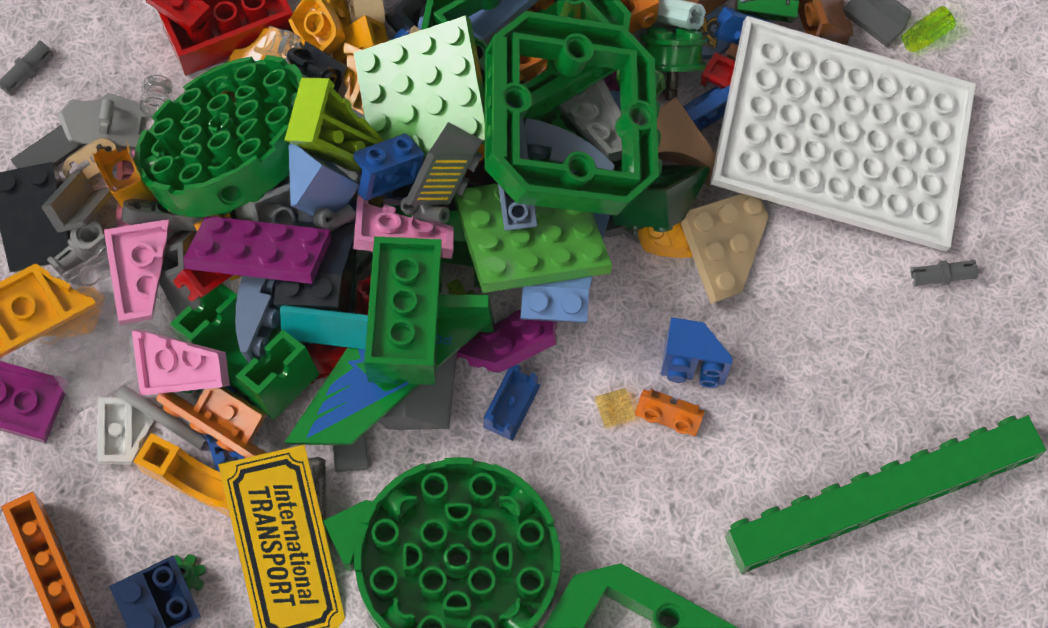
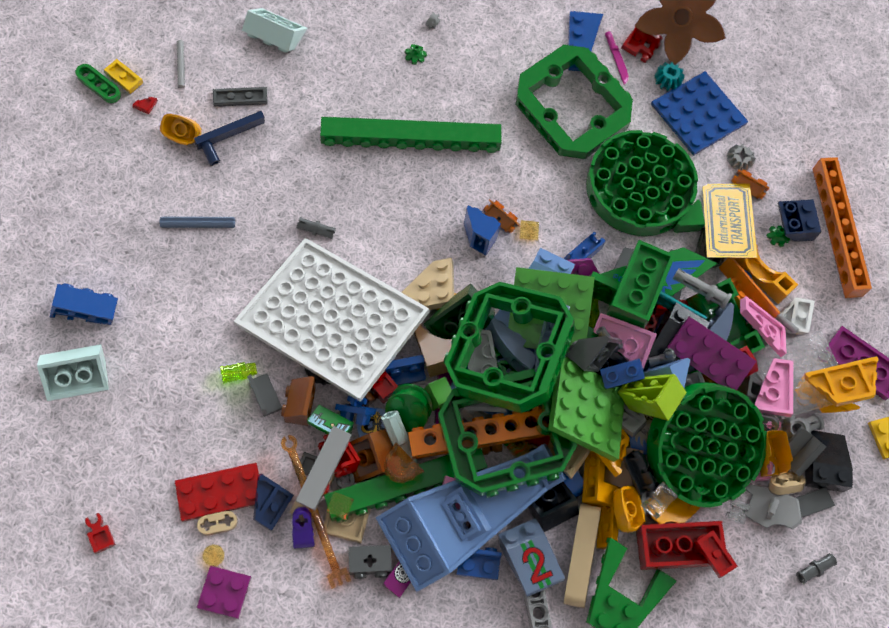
camera: 165 degrees left, 0 degrees up
(284, 346) = (710, 292): none -> light grey pin

